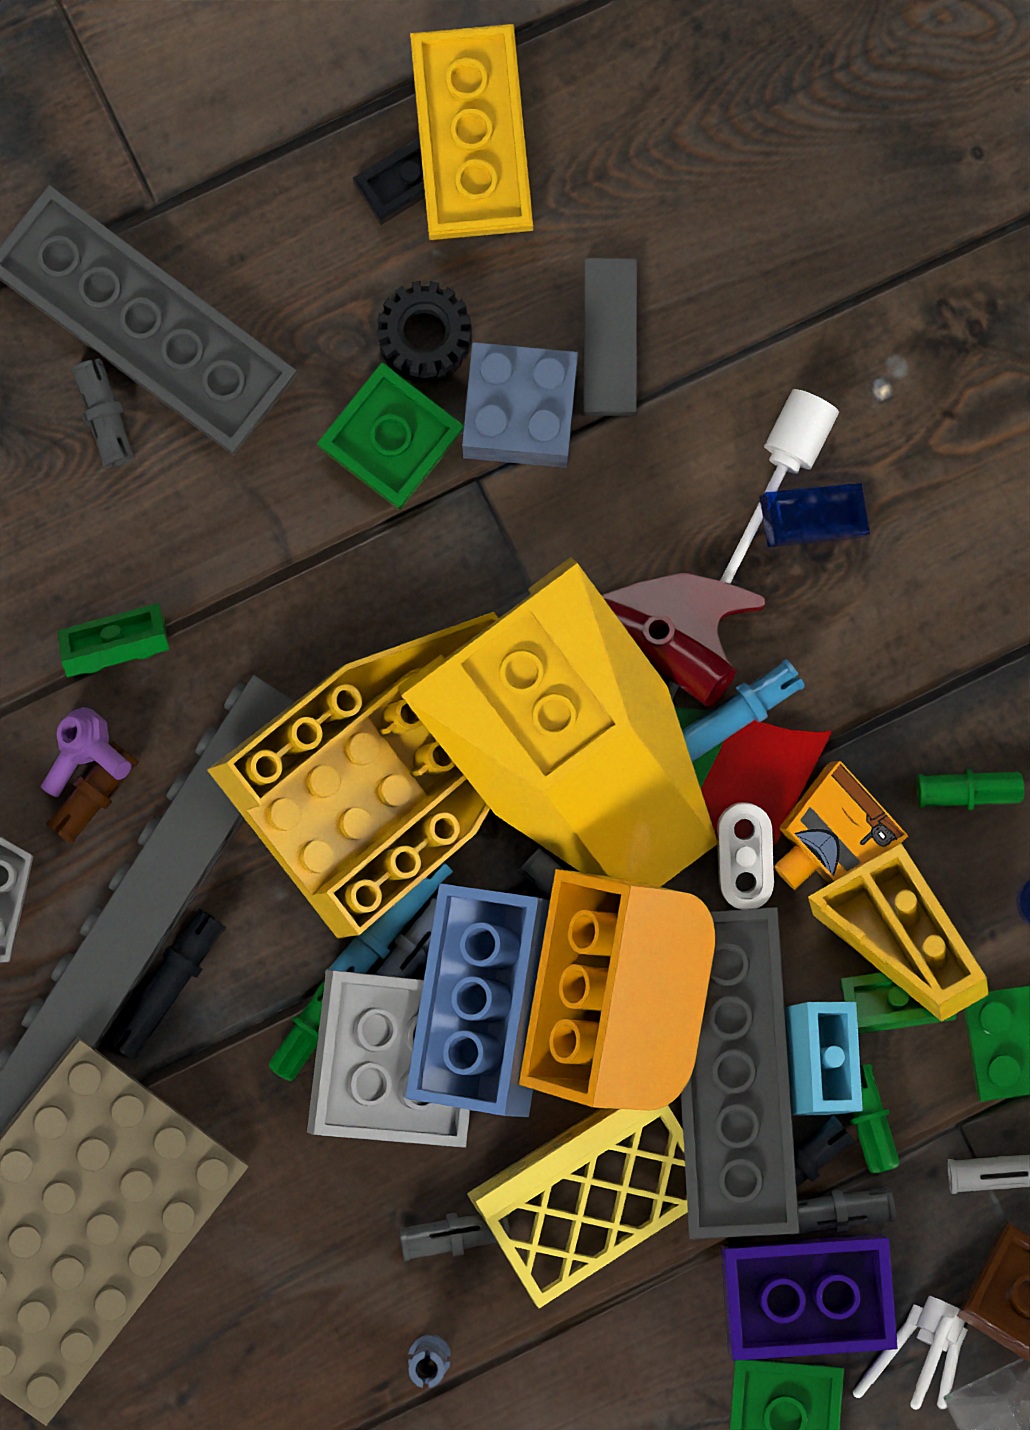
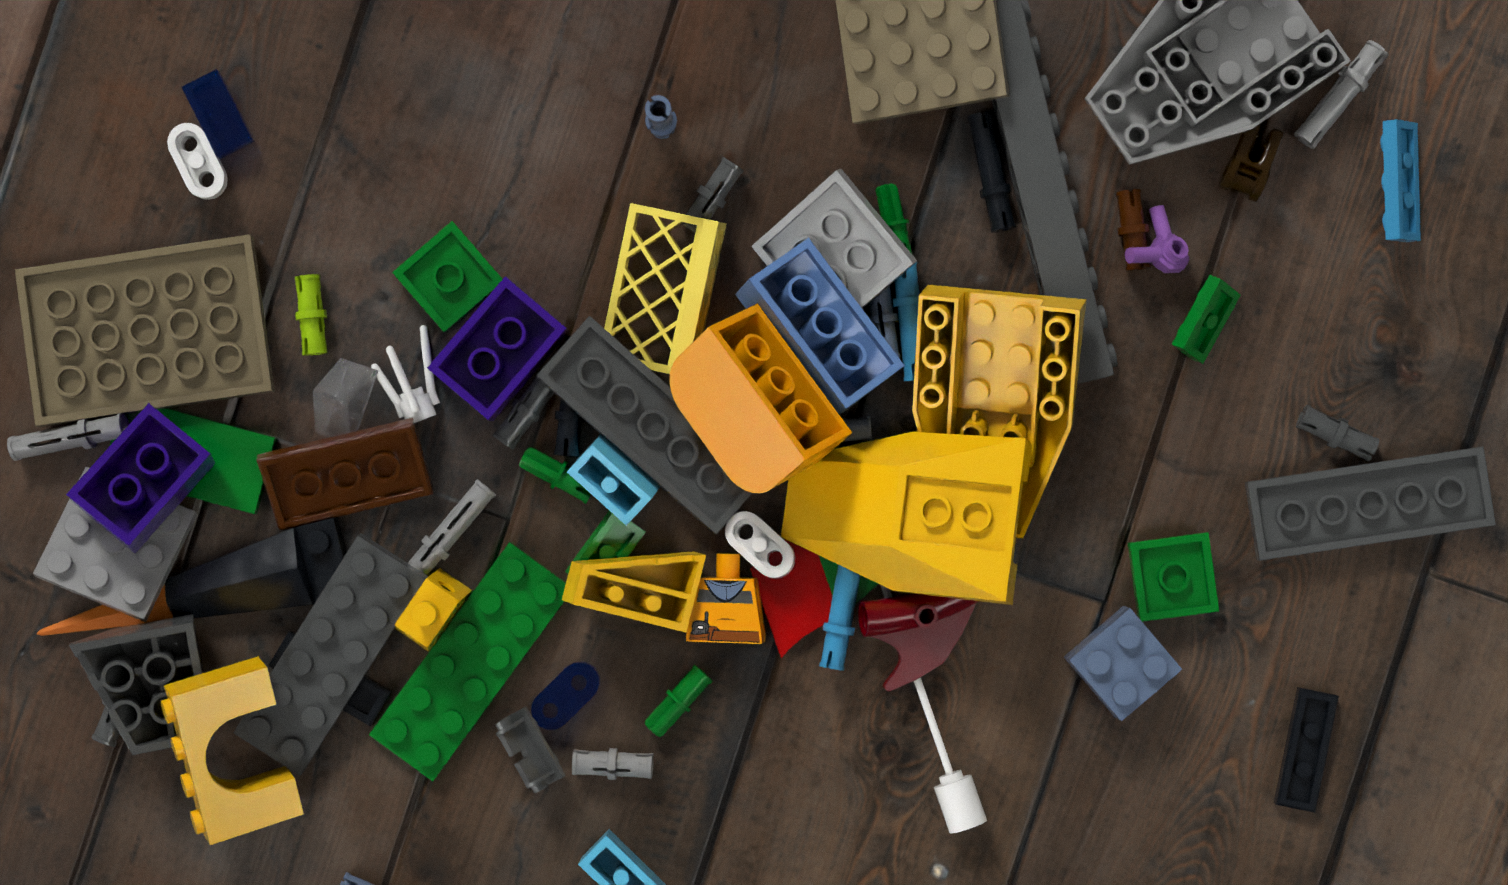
camera: 140 degrees right, 5 degrees up
(424, 362) = (1237, 658): black tyre -> none
(471, 132) = (1301, 785): yellow tile -> none
(610, 337) = (1112, 750): dark grey tile -> none
(814, 515) = (906, 764): clear blue plate -> none

